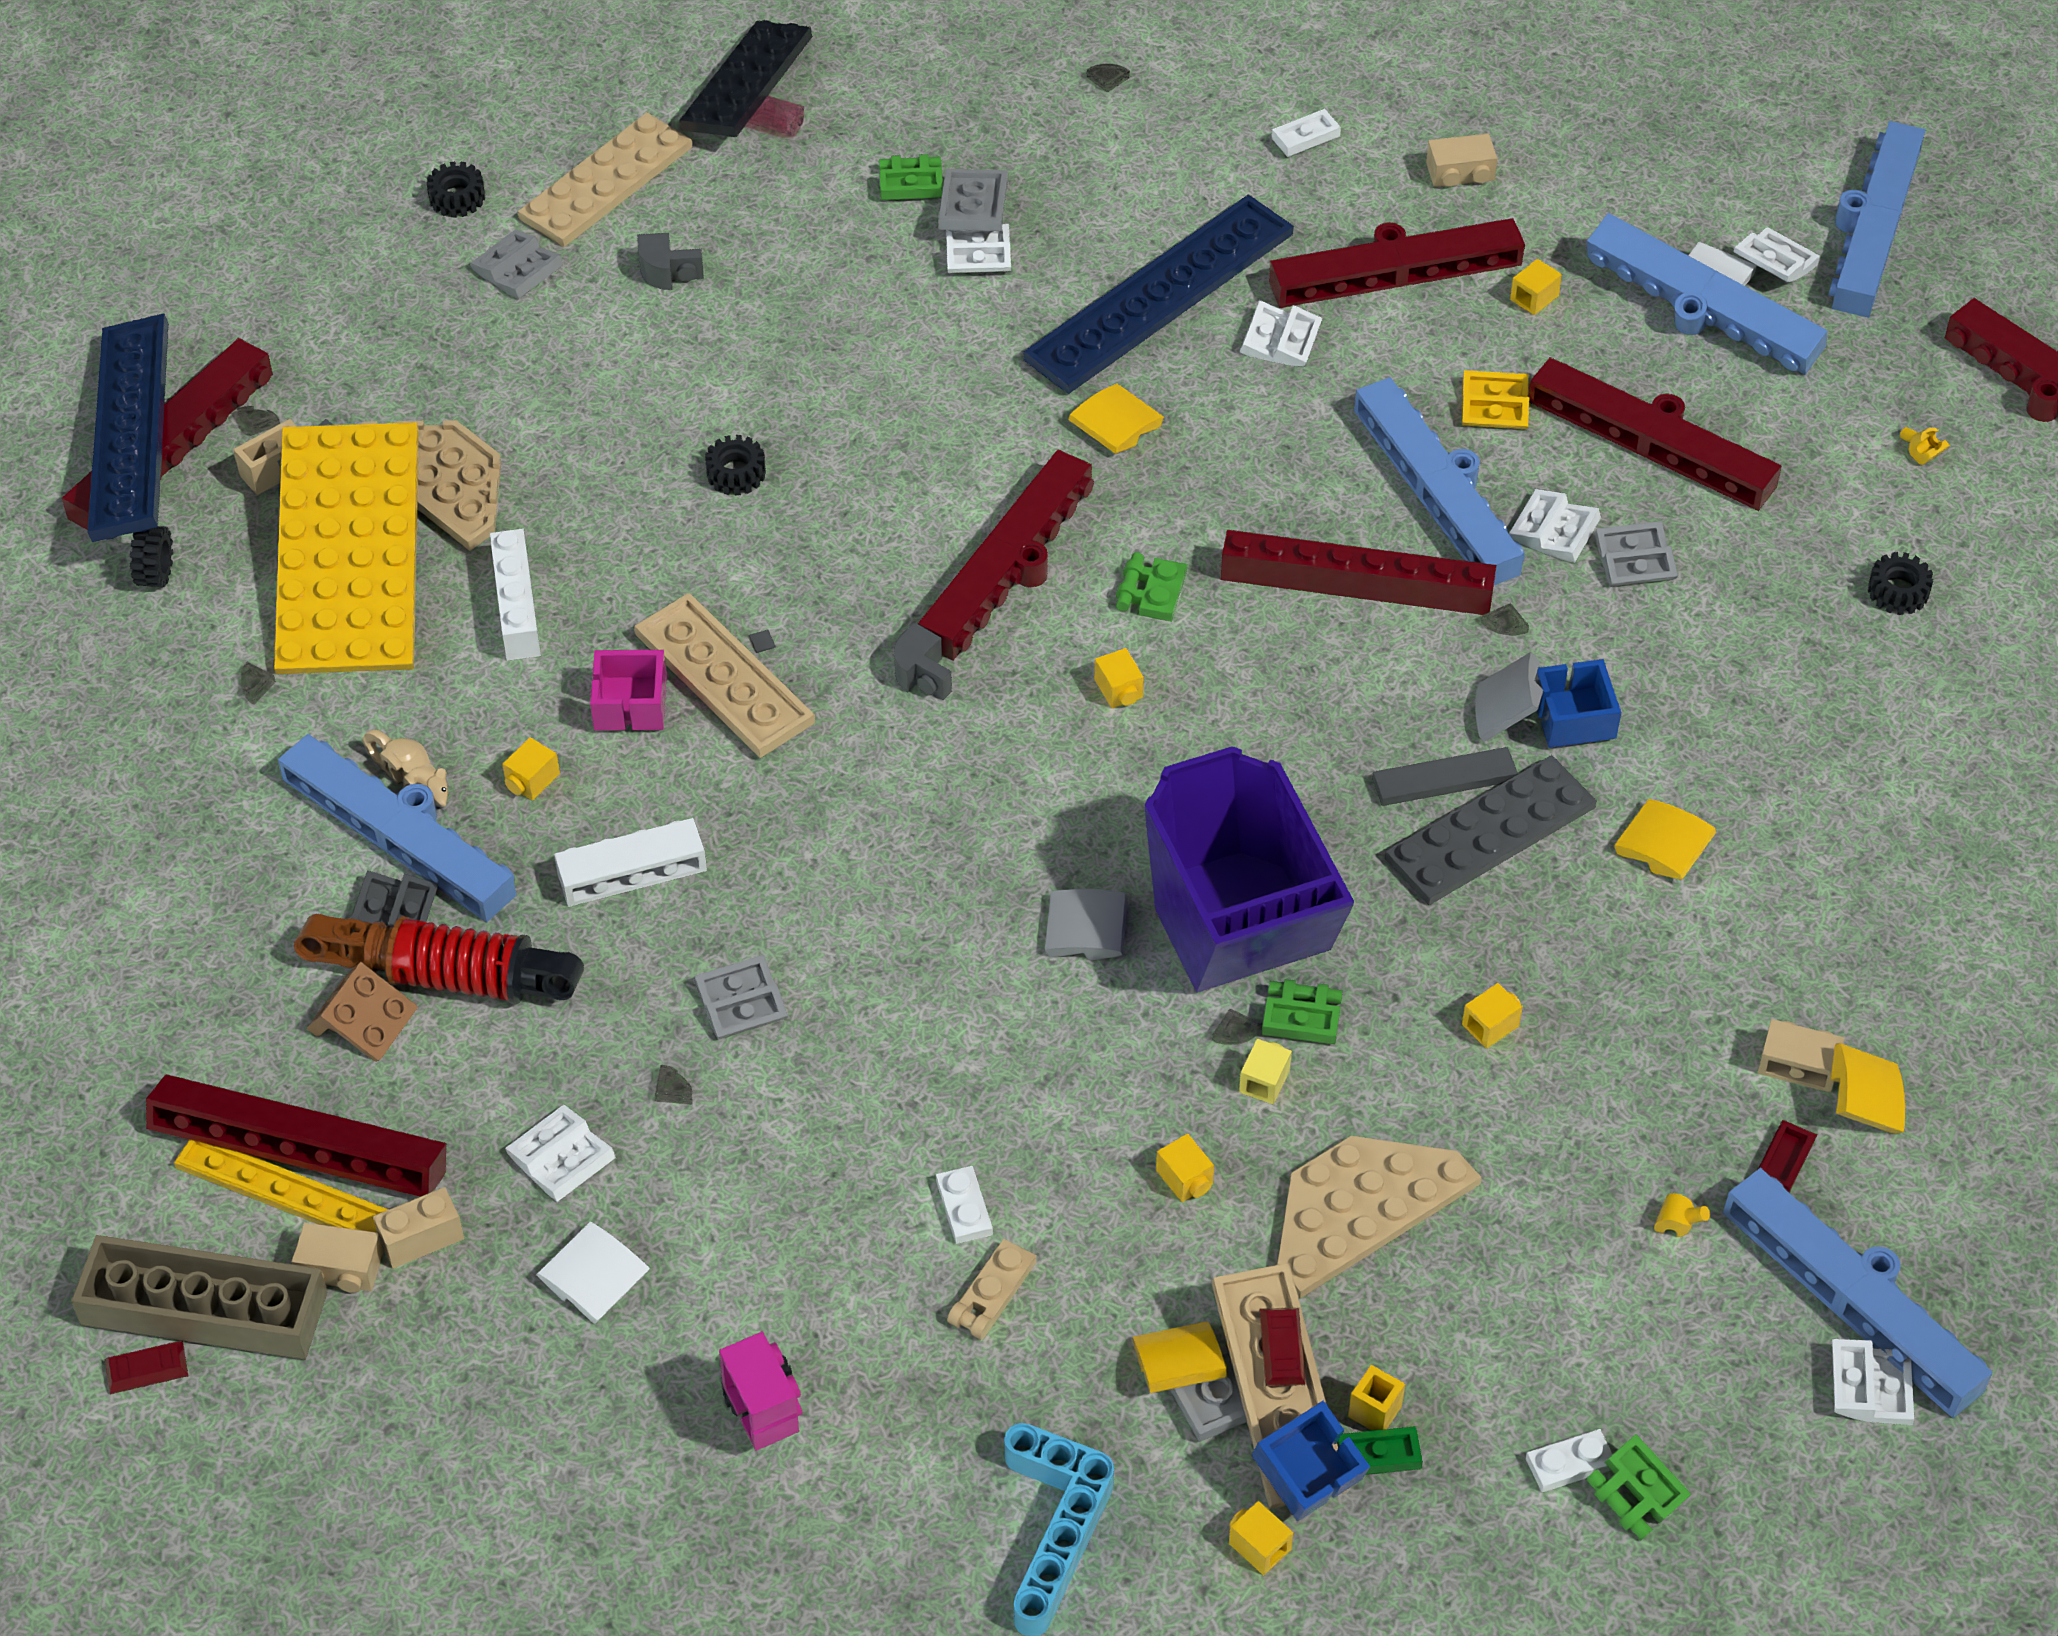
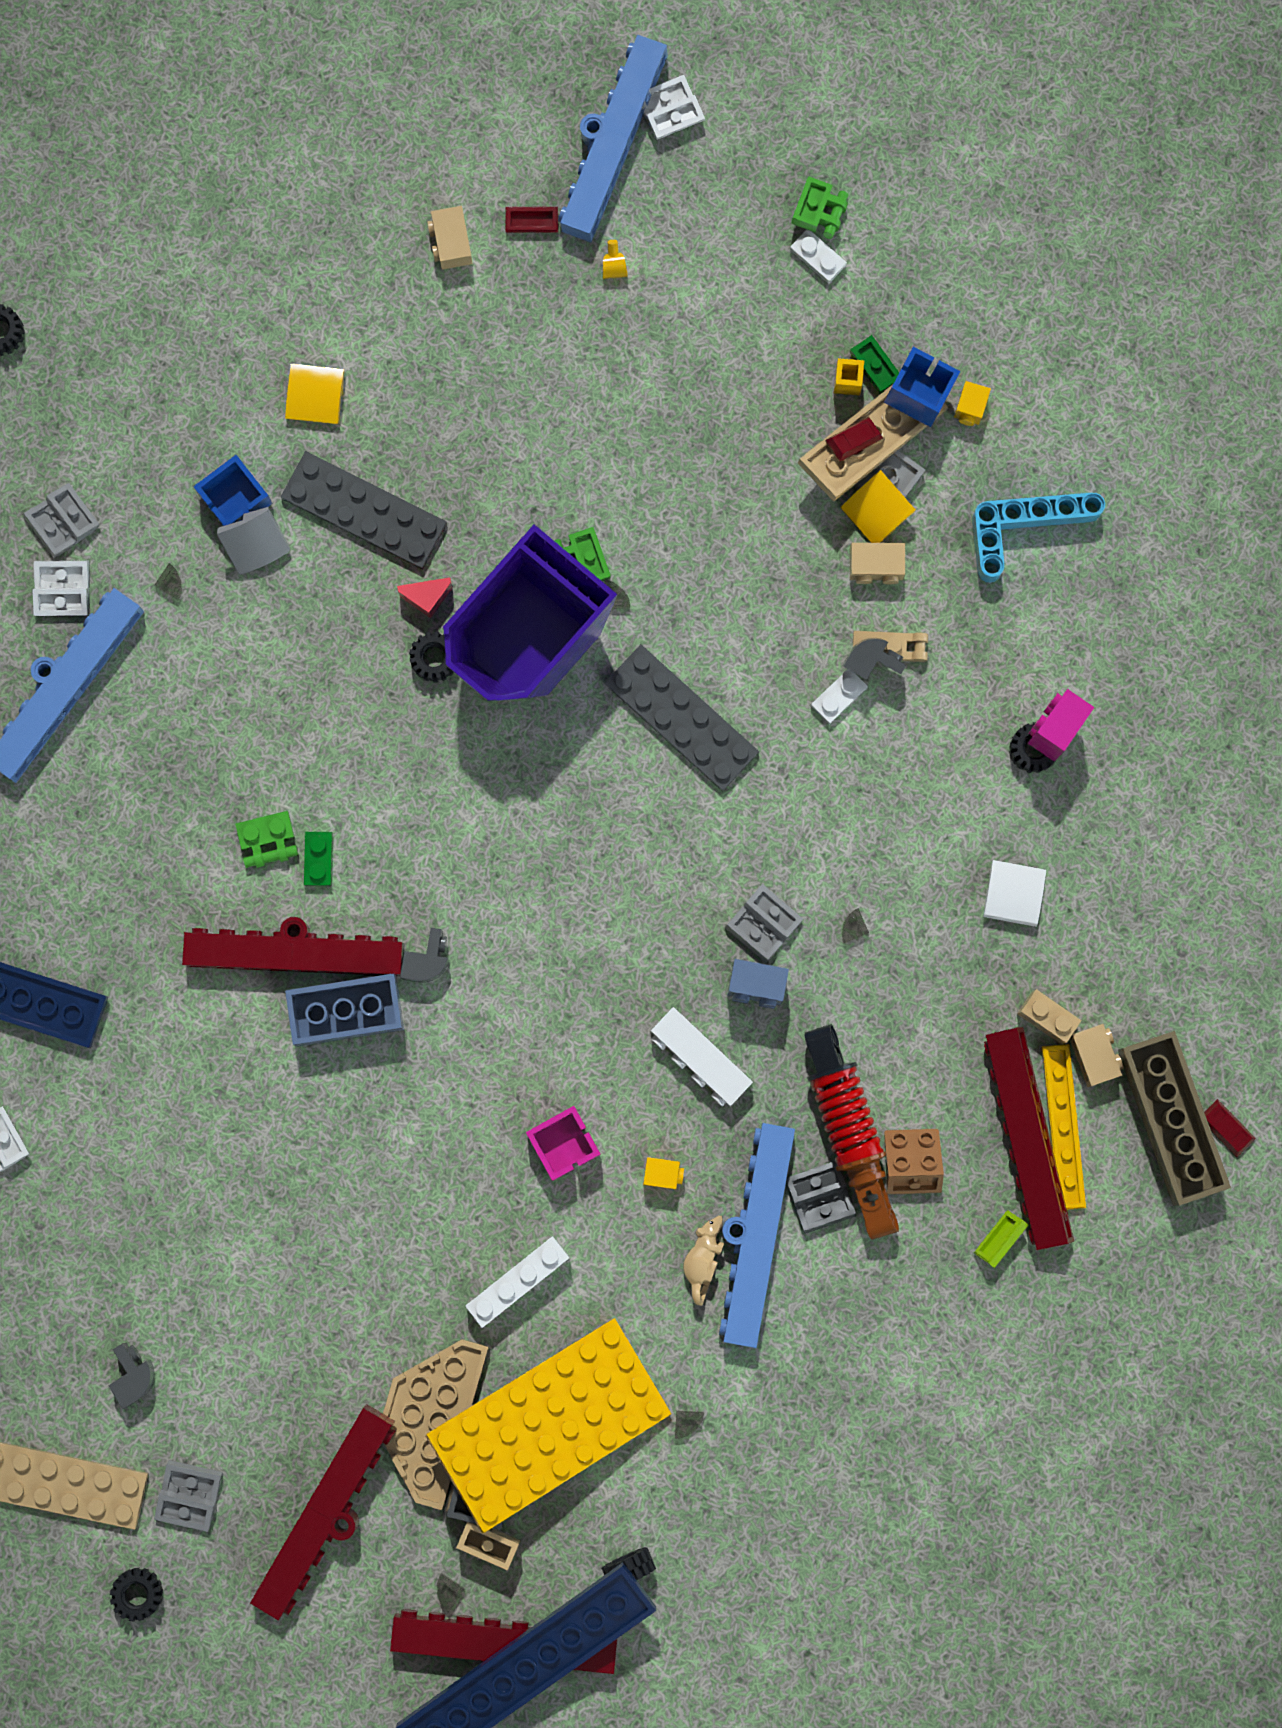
camera: 120 degrees left, 30 degrees up
(208, 1054) = (1001, 1238): none -> lime tile
(411, 345) = (322, 1513): none -> dark red hinge
(560, 1153) = (941, 968): white slope -> none
(673, 941) = (757, 983): none -> sand blue brick
(725, 675) = (506, 1092): tan plate -> none
(732, 451) = (326, 1199): black tyre -> none
(762, 641) = (457, 1087): dark grey window -> none
(912, 564) = (344, 1010): none -> sand blue brick
(987, 1246) = (866, 654): none -> dark grey brick
(1042, 1029) = (681, 717): none -> dark grey plate
(1086, 923) = (585, 731): light grey slope -> none
(1100, 622) = (318, 858): none -> green plate
(1108, 1321) = (877, 562): none -> tan brick
(1116, 418) = (117, 947): yellow slope -> none
(1119, 678) = (368, 814): yellow brick -> none
(1185, 1168) = (743, 570): yellow brick -> none
(1265, 1071) = (642, 558): light yellow brick -> none
(1346, 835) = (426, 595): none -> coral slope
(1357, 572) = (185, 698): dark red brick -> none
(1362, 1200) = (705, 459): tan plate -> none
(1444, 776) = (333, 560): dark grey tile -> none
(1492, 1015) = (522, 437): yellow brick -> none
(1869, 1089) = (460, 182): yellow slope -> none

